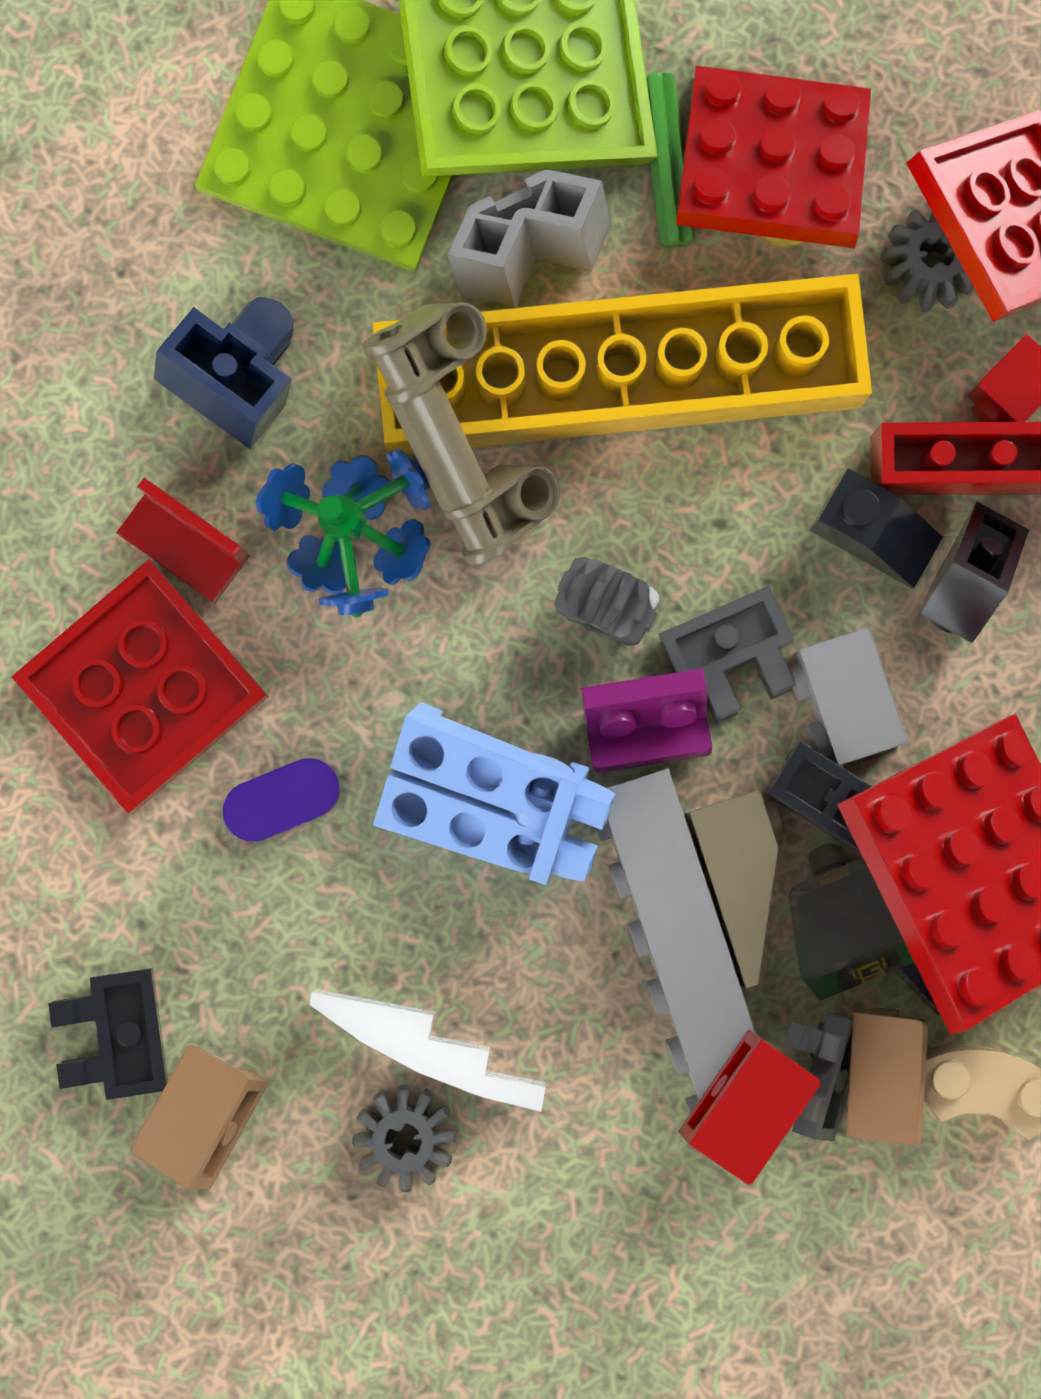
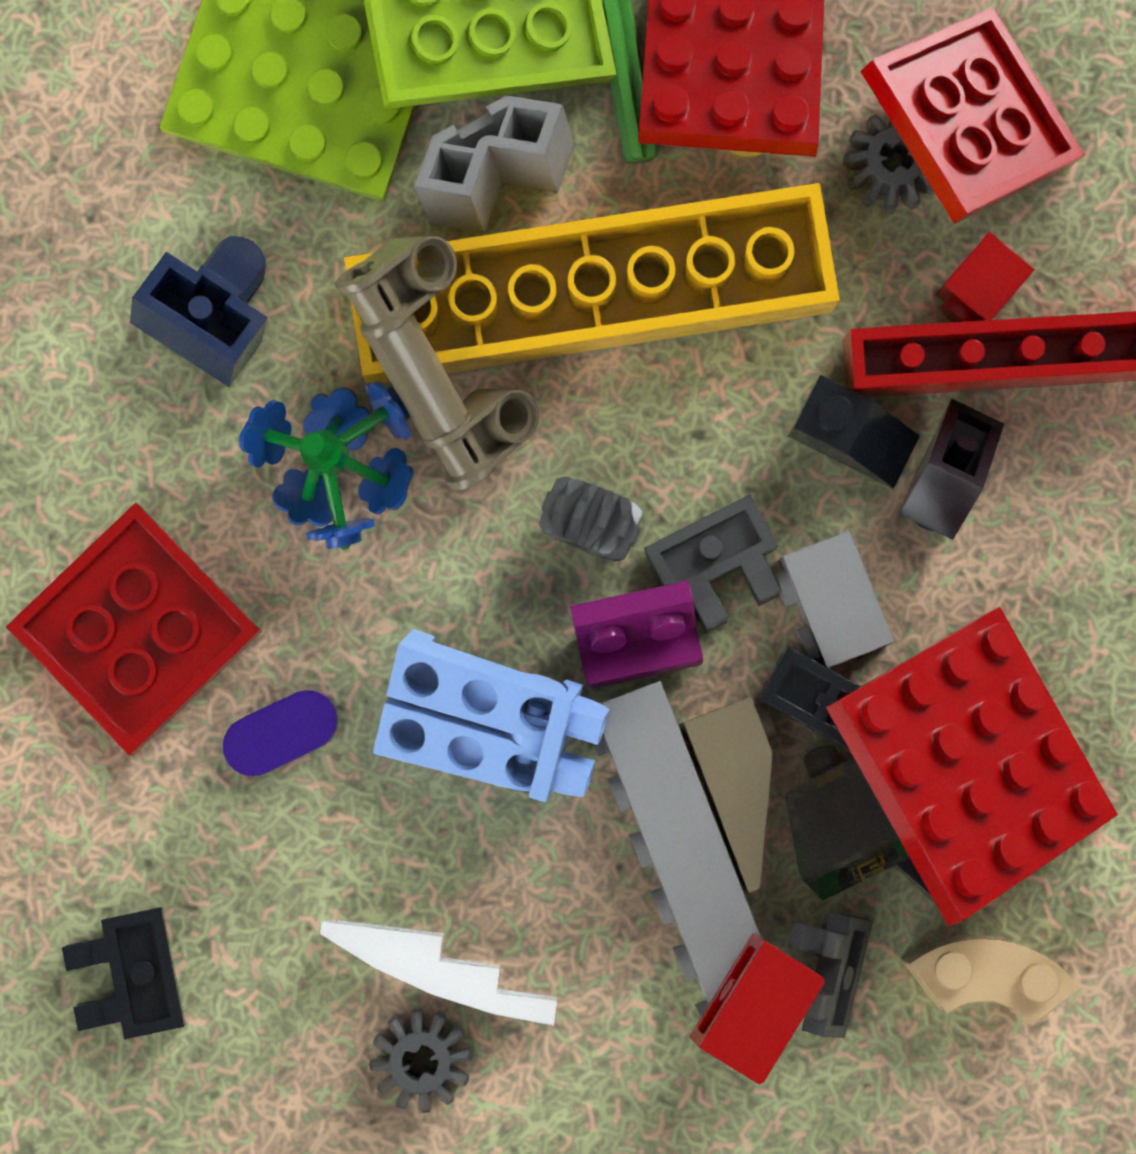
camera: 10 degrees left, 0 degrees up
(182, 542) = (167, 483): red panel -> none
(198, 1118) = (217, 1052): medium nougat panel -> none
(887, 1077) = (891, 971): medium nougat panel -> none

